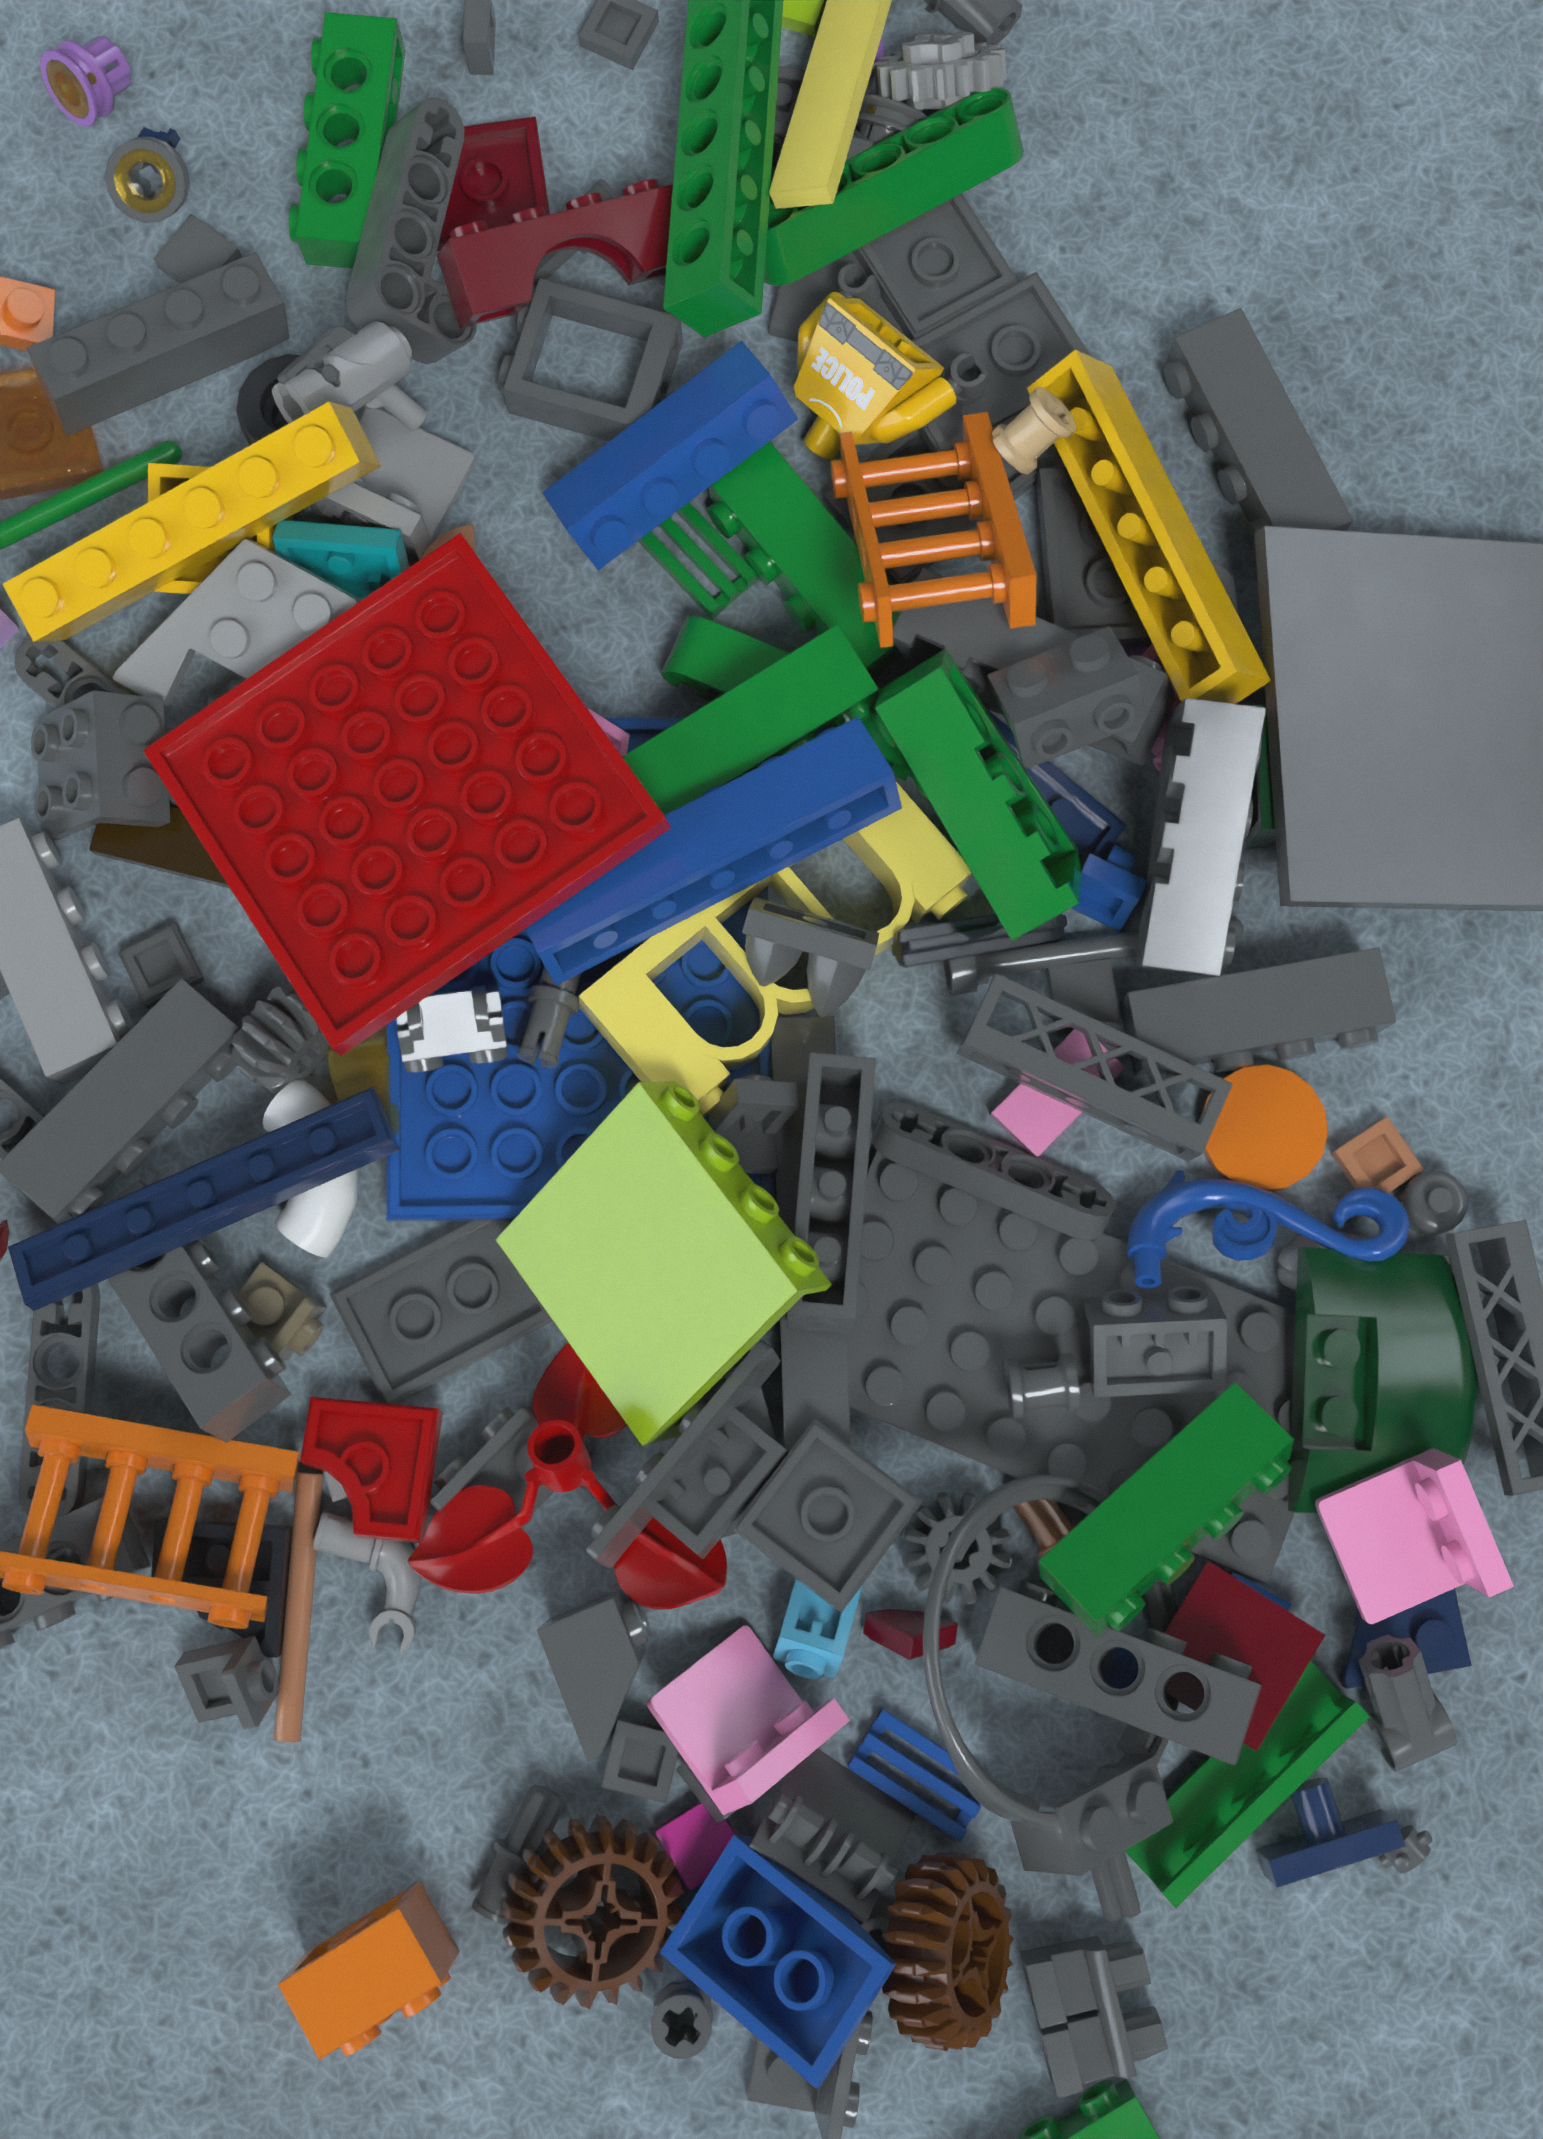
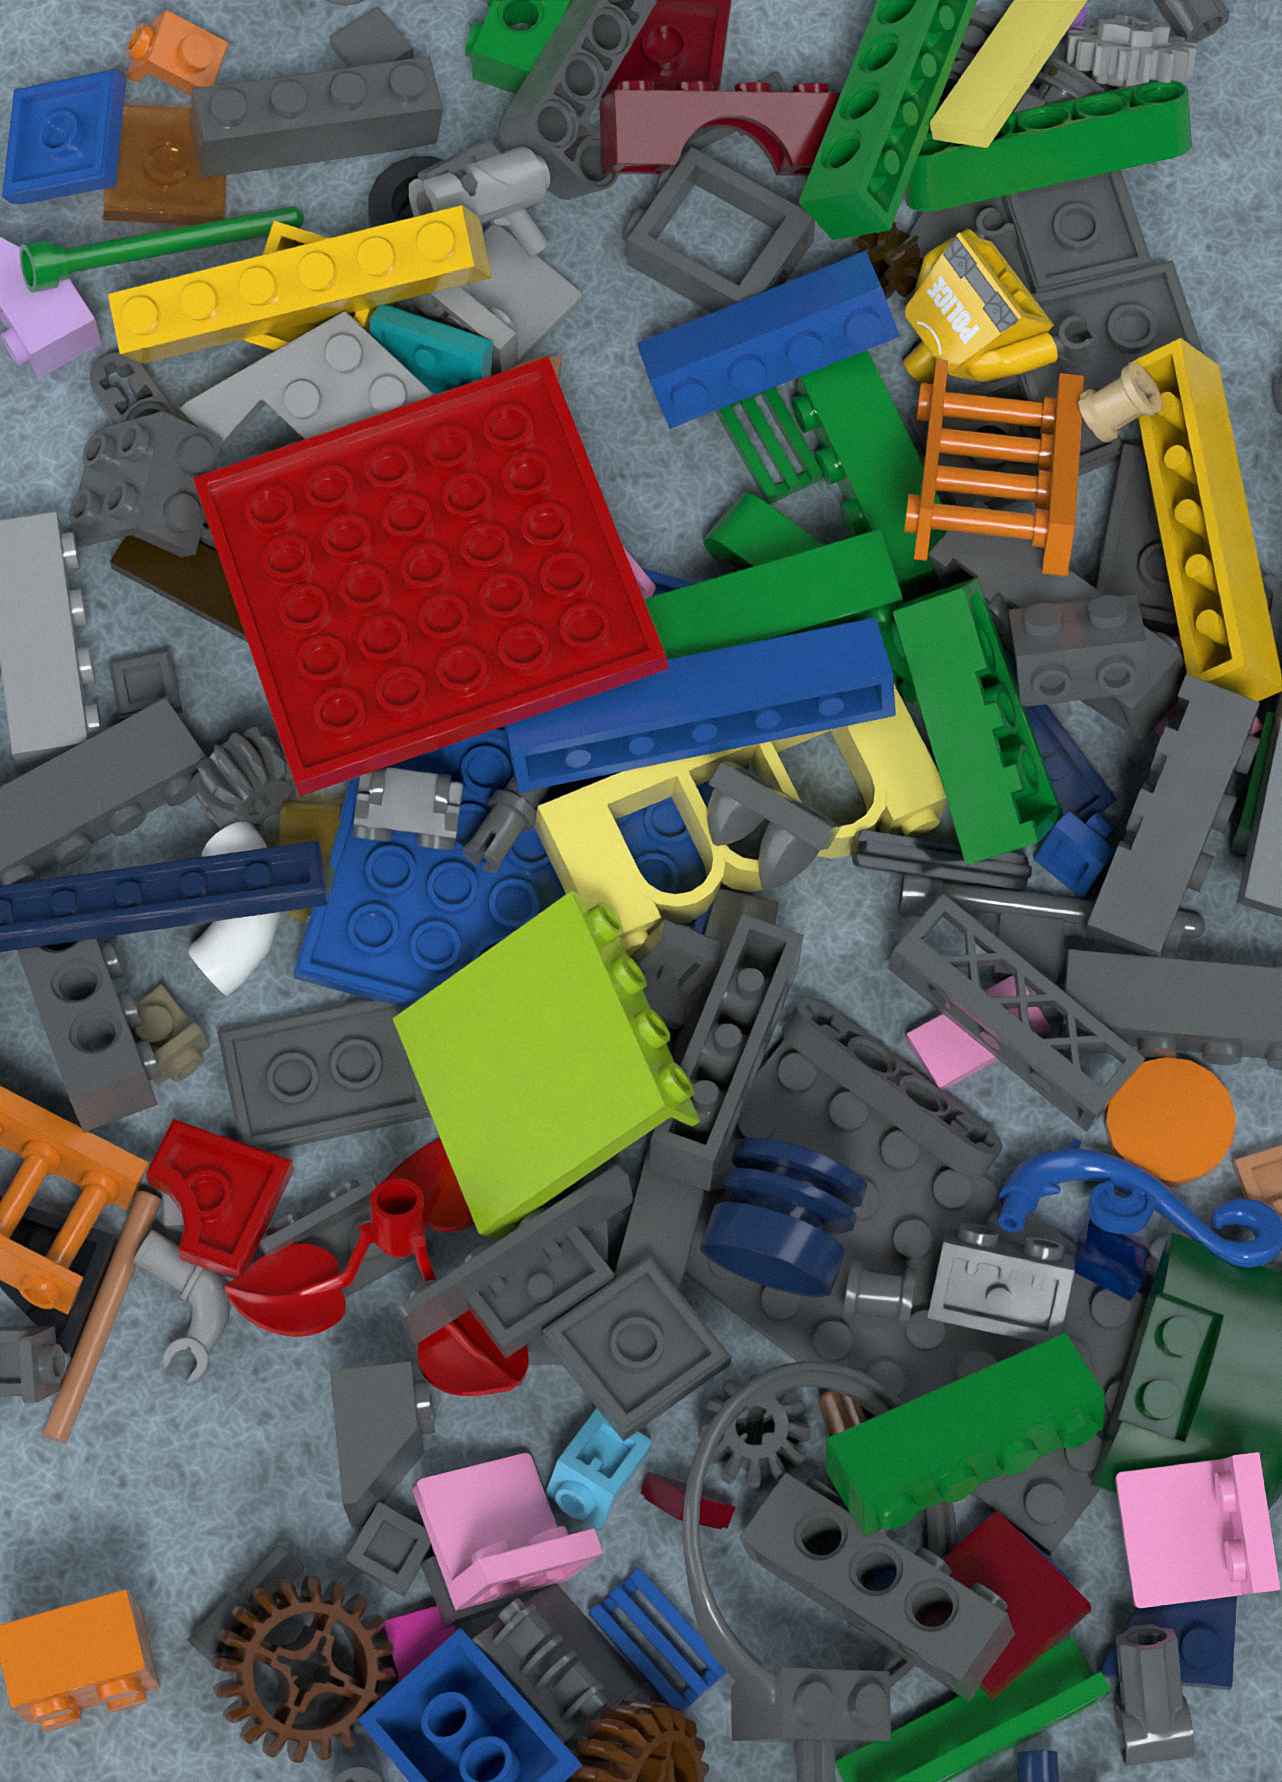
camera: 15 degrees right, 10 degrees down
(768, 339) = (894, 259): none -> dark brown gear
(934, 1342) = (784, 1215): none -> dark blue wheel
(1247, 1286) = (1110, 1260): none -> clear blue tile

